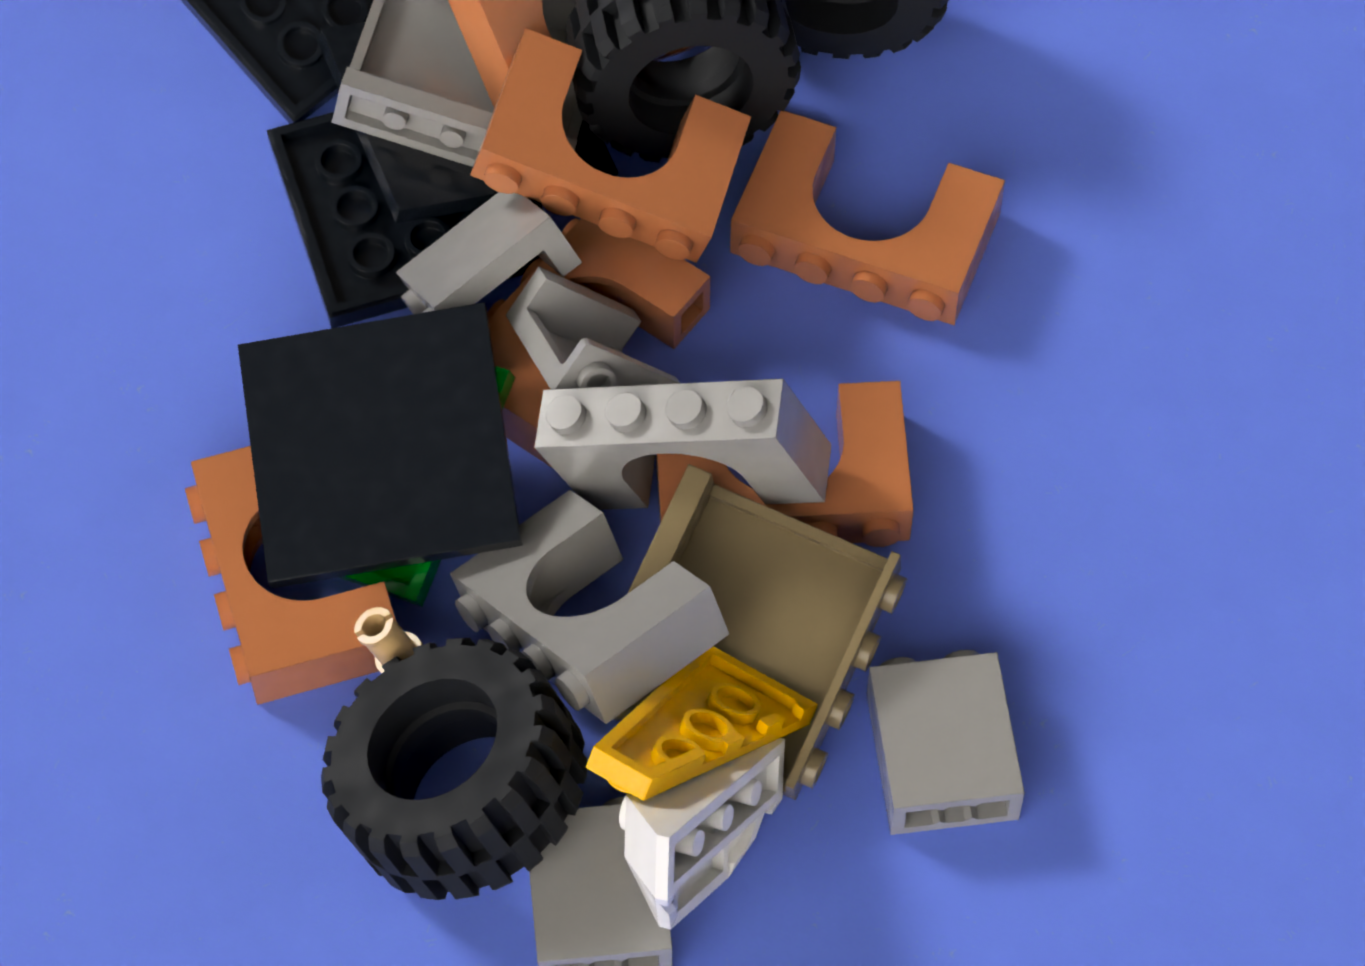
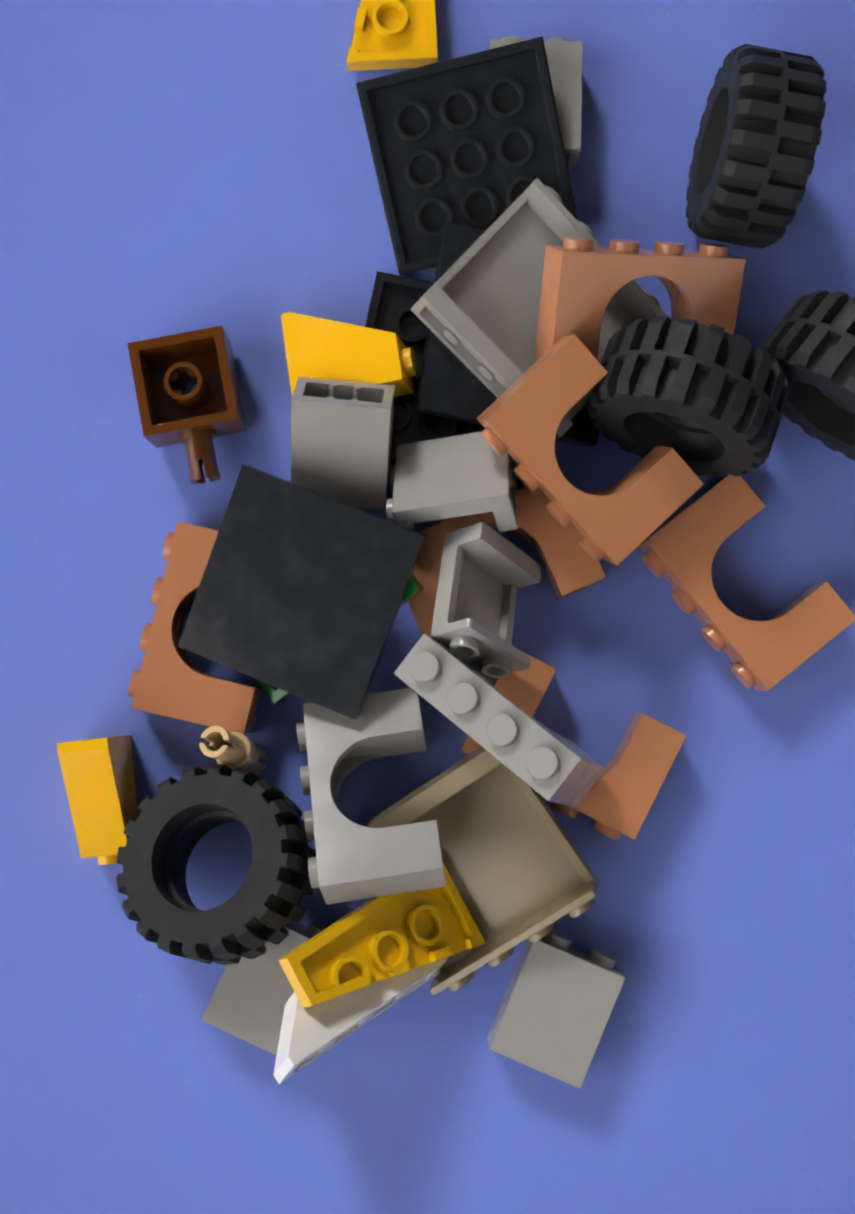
camera: 30 degrees right, 25 degrees up
(126, 337) = (212, 408): none -> reddish brown brick
(268, 789) = (100, 793): none -> yellow slope
(289, 220) = (346, 353): none -> yellow slope
(330, 271) = (342, 439): none -> light grey brick

